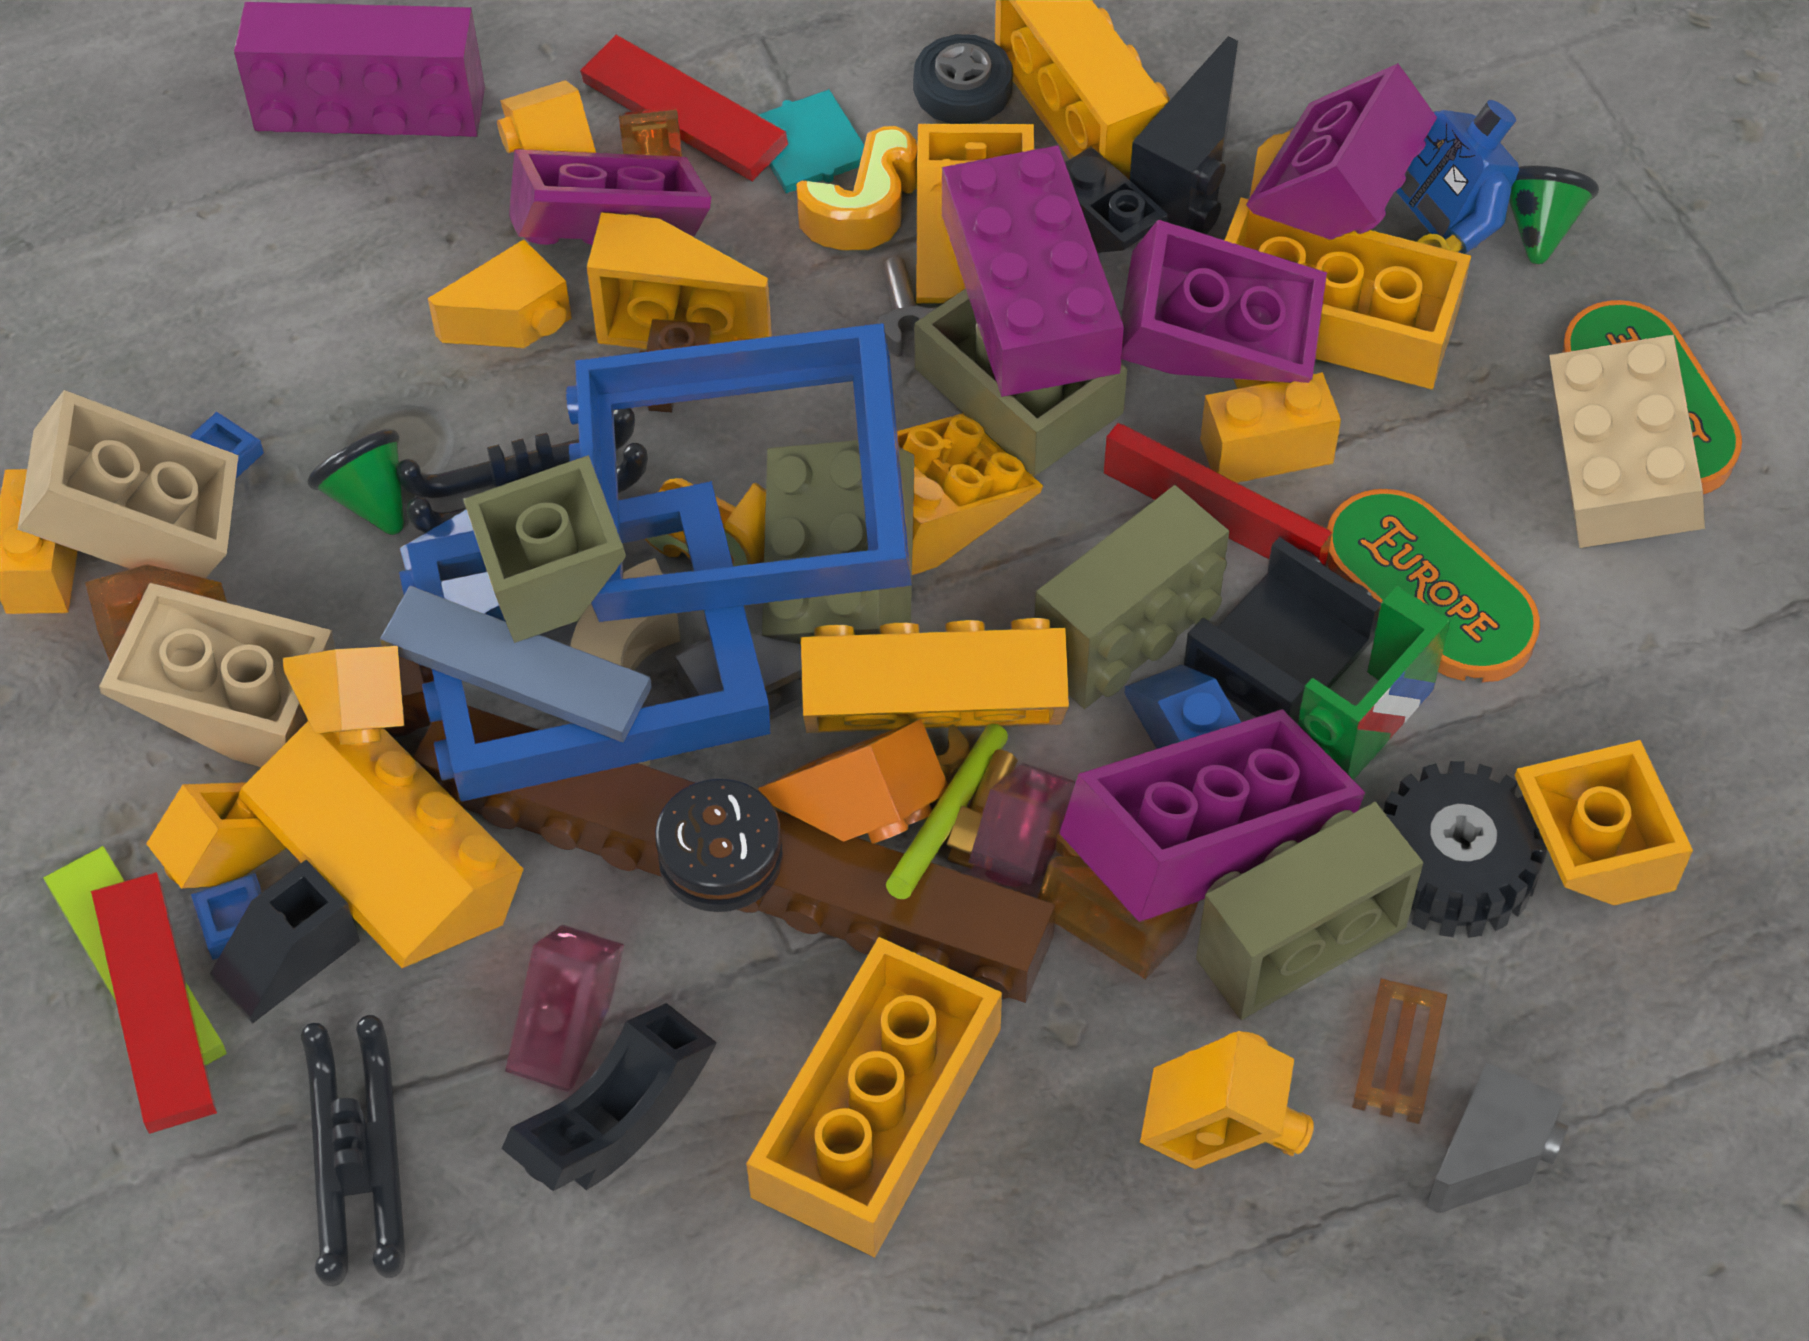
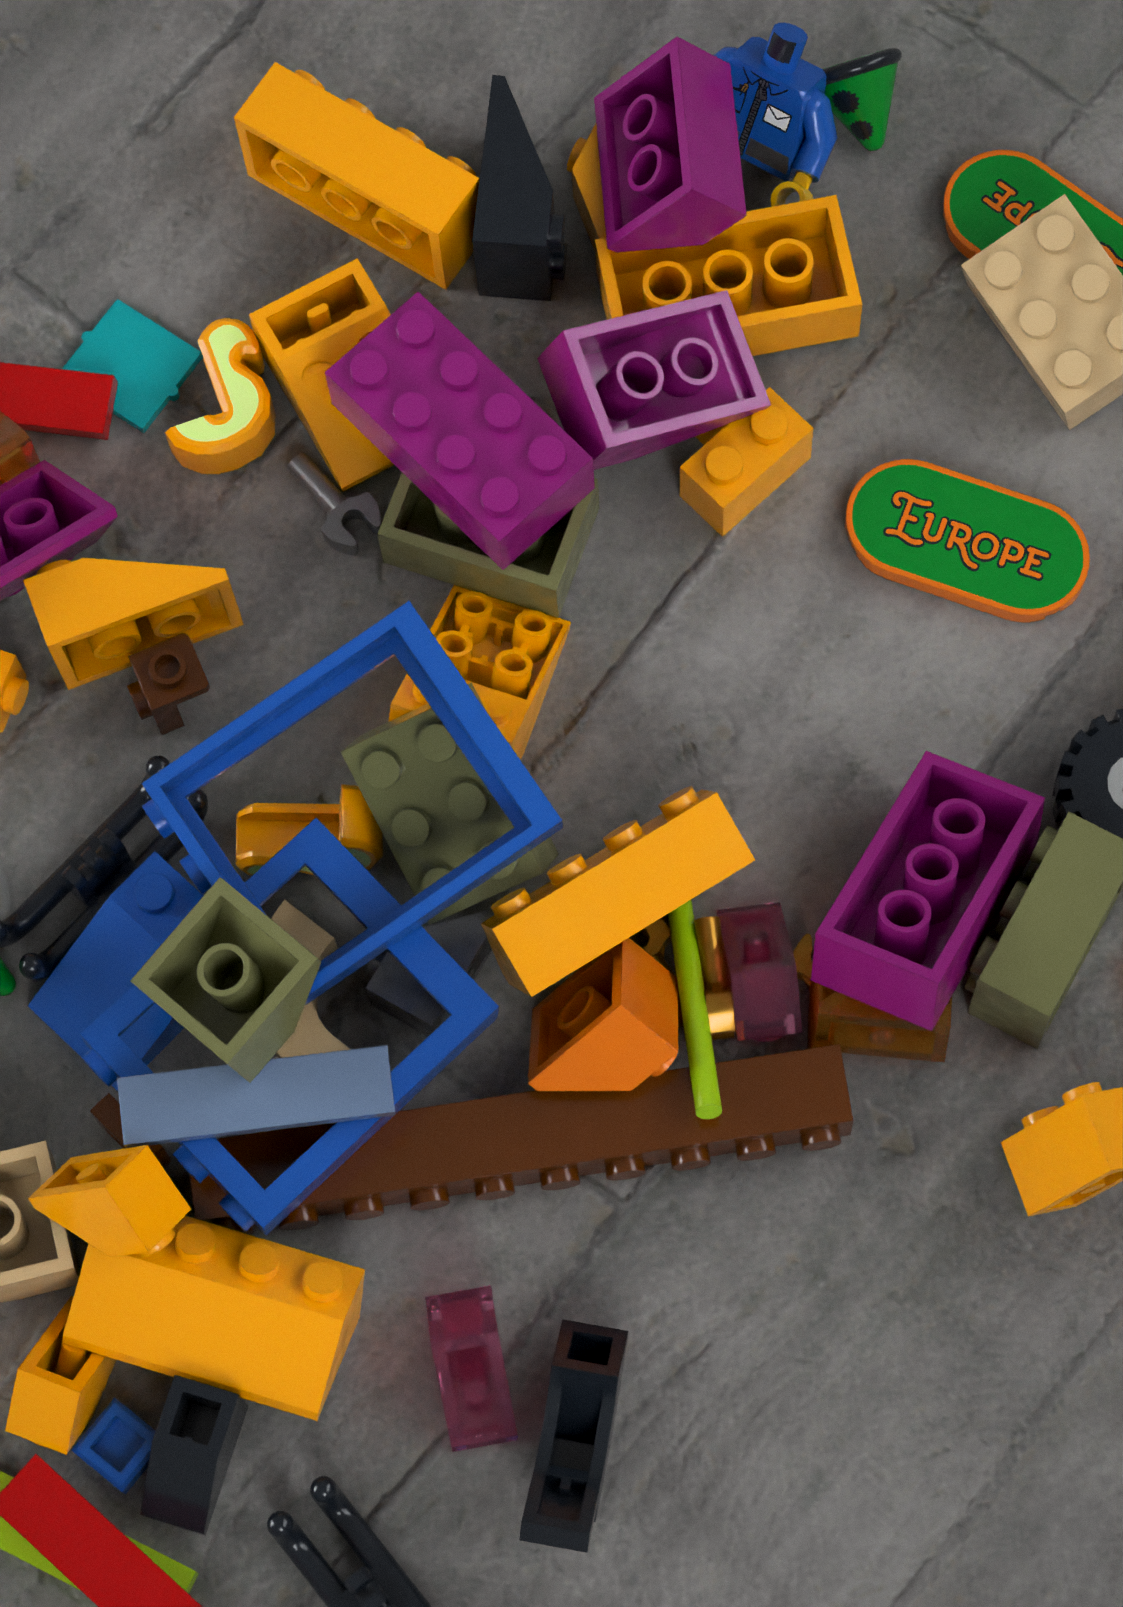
camera: 25 degrees left, 15 degrees up
(719, 845) = (528, 1156): black head -> none
(875, 1096) = (792, 1302): light orange brick -> none
(962, 79) = (238, 202): black wheel -> none
(1111, 204) = (475, 302): black slope -> none
(1136, 593) = (734, 702): olive brick -> none
(1180, 705) = (833, 792): blue slope -> none
(1246, 514) = (739, 561): red tile -> none
(1284, 633) = (873, 665): black panel -> none
(1404, 661) = (993, 630): green panel -> none

